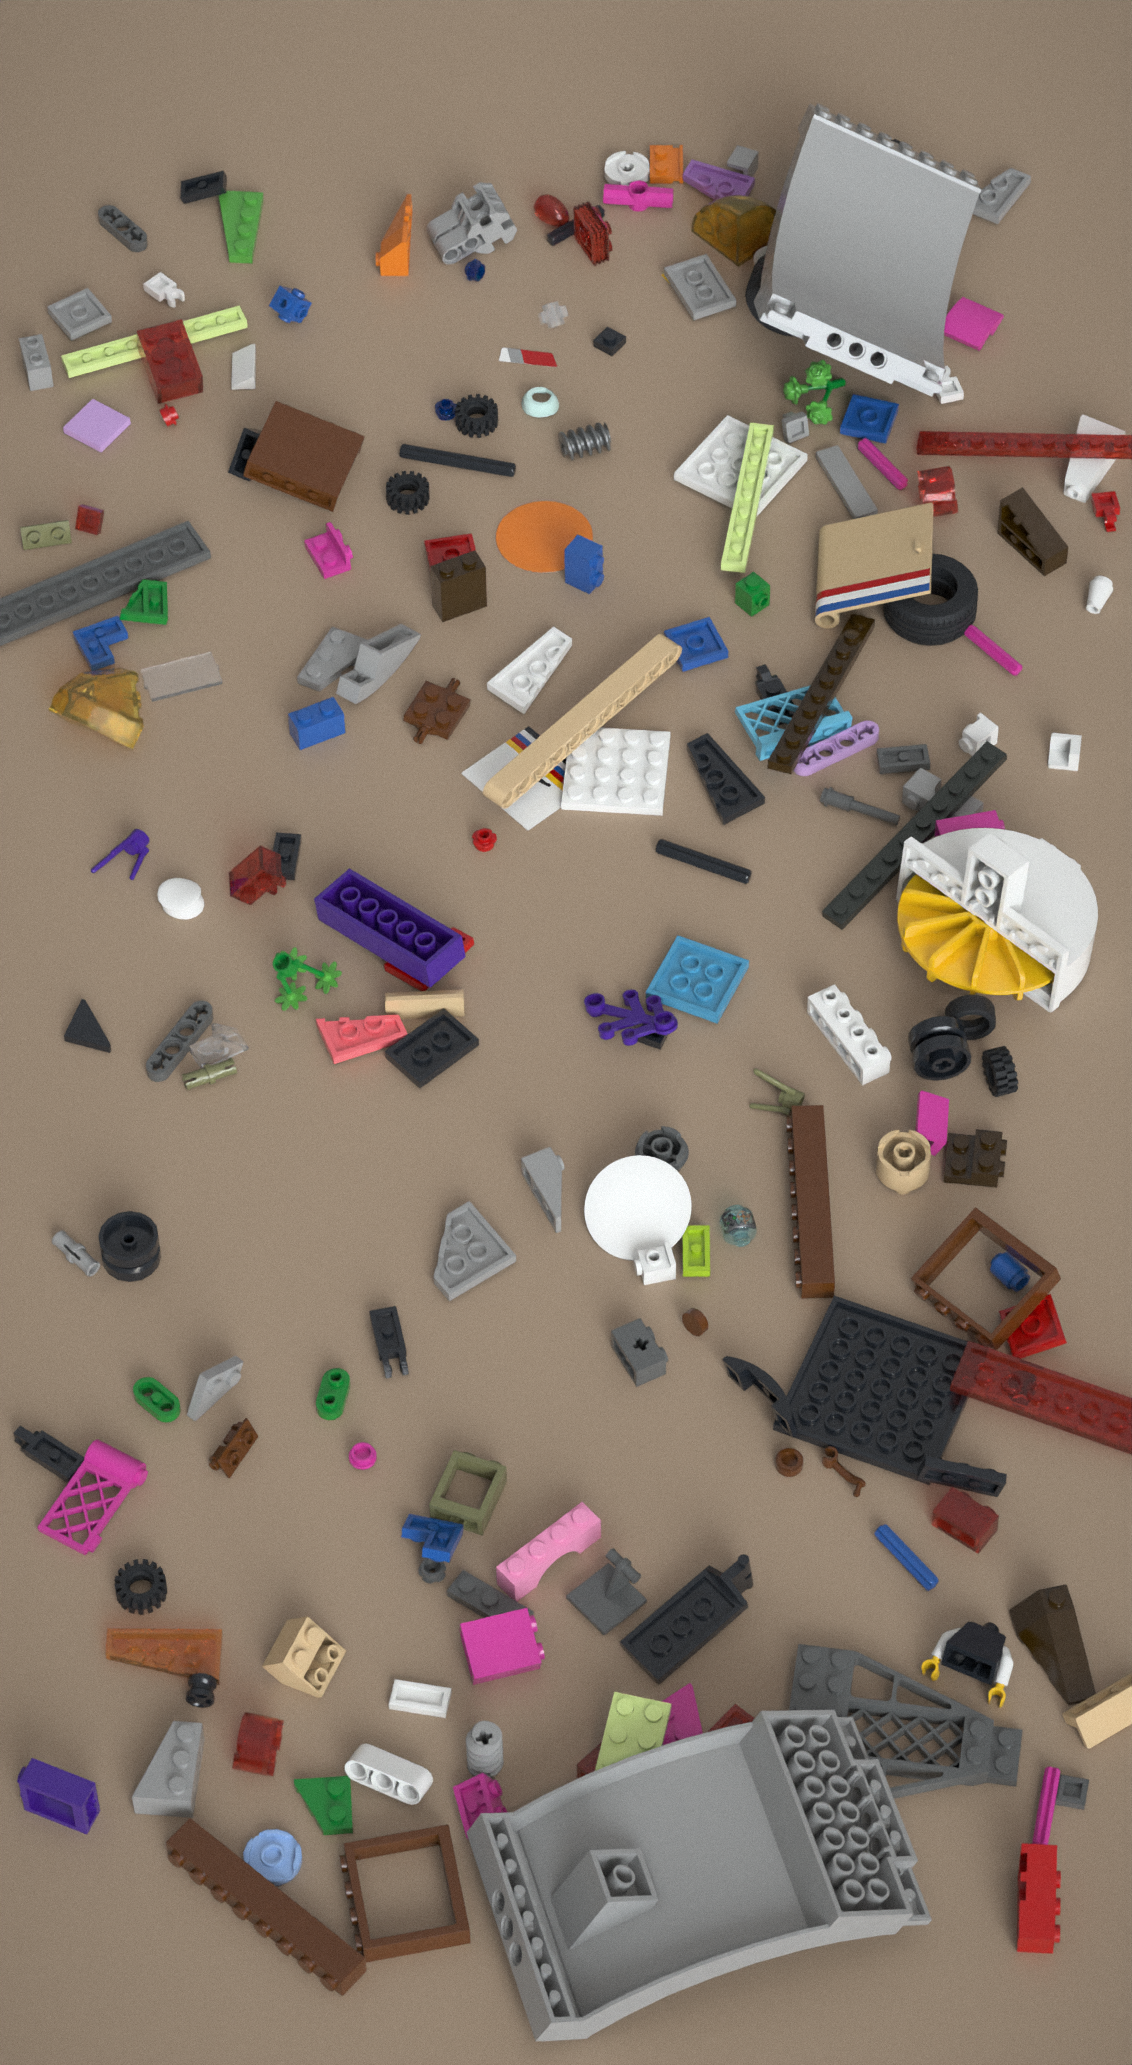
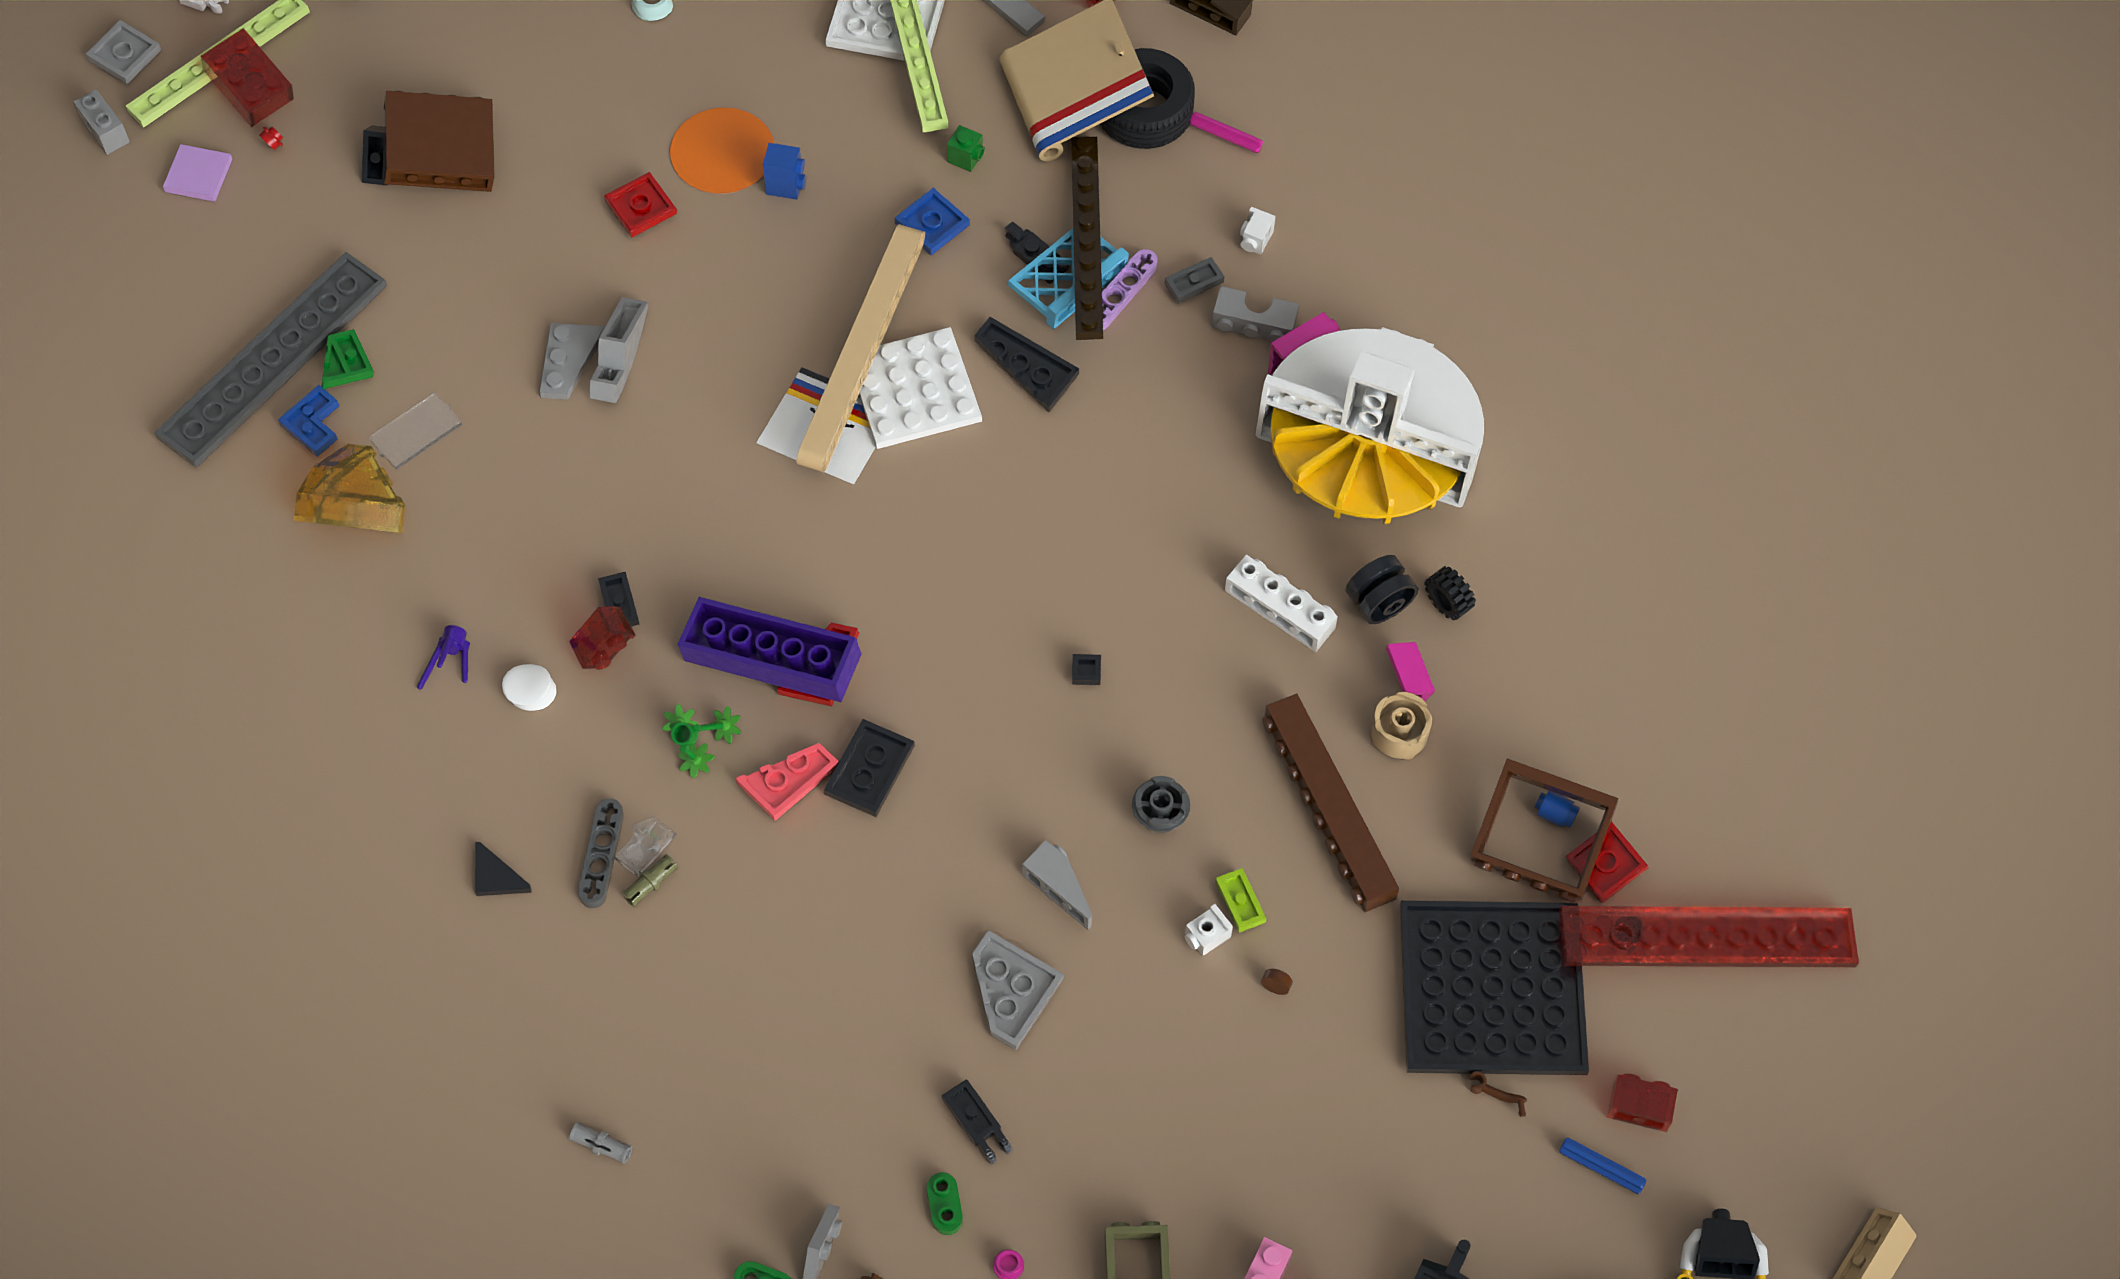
camera: 25 degrees left, 10 degrees up
(46, 534) = (198, 316): olive hinge -> none
(89, 519) = (239, 284): clear red tile -> none
(129, 1246) = (655, 1099): black wheel -> none
(244, 368) = (327, 59): white slope -> none
(316, 723) = (585, 439): blue brick -> none
(329, 552) = (510, 239): dark pink bracket -> none
(407, 502) = (565, 157): black tyre -> none
(424, 1003) = (838, 718): tan panel -> none
(436, 710) = (701, 381): reddish brown plate -> none
(445, 409) = (561, 45): clear blue plate -> none
(457, 460) = (596, 93): black axle -> none
(458, 586) = (667, 237): dark brown brick -> none
(480, 425) = (596, 50): black tyre -> none
(484, 839) = (815, 517): red plate -> none
(529, 672) = (777, 307): white wing -> none
(584, 440) = (719, 31): dark grey piece -> none
(637, 1206) = (1163, 875): white sticker -> none
(639, 1352) = (1243, 1051): dark grey brick -> none
(661, 1023) = (1059, 661): dark purple plant -> none
(698, 979) = (1103, 594): dark azure plate -> none
(703, 861) = (1048, 459): black axle -> none
(738, 1225) = (1269, 856): clear light blue head -> none
(747, 1374) = (1355, 1023): black slope -> none
(788, 1096) = (1255, 694): olive plant -> none
(789, 1462) = (1438, 1102): reddish brown tile -> none
(847, 803) = (1160, 346): dark grey pin -> none
(920, 827) = (1248, 363): pearl dark grey plate -> none
(961, 1476) = (1620, 1057): black plate -> none
(973, 1005) = (1395, 539): black tyre -> none
(975, 1158) = (1466, 695): dark brown plate -> none
(1053, 1636) = (1786, 1199): dark brown wedge -> none
(1064, 751) = (1347, 220): white panel -> none
(1098, 593) = (1300, 39): white cone -> none

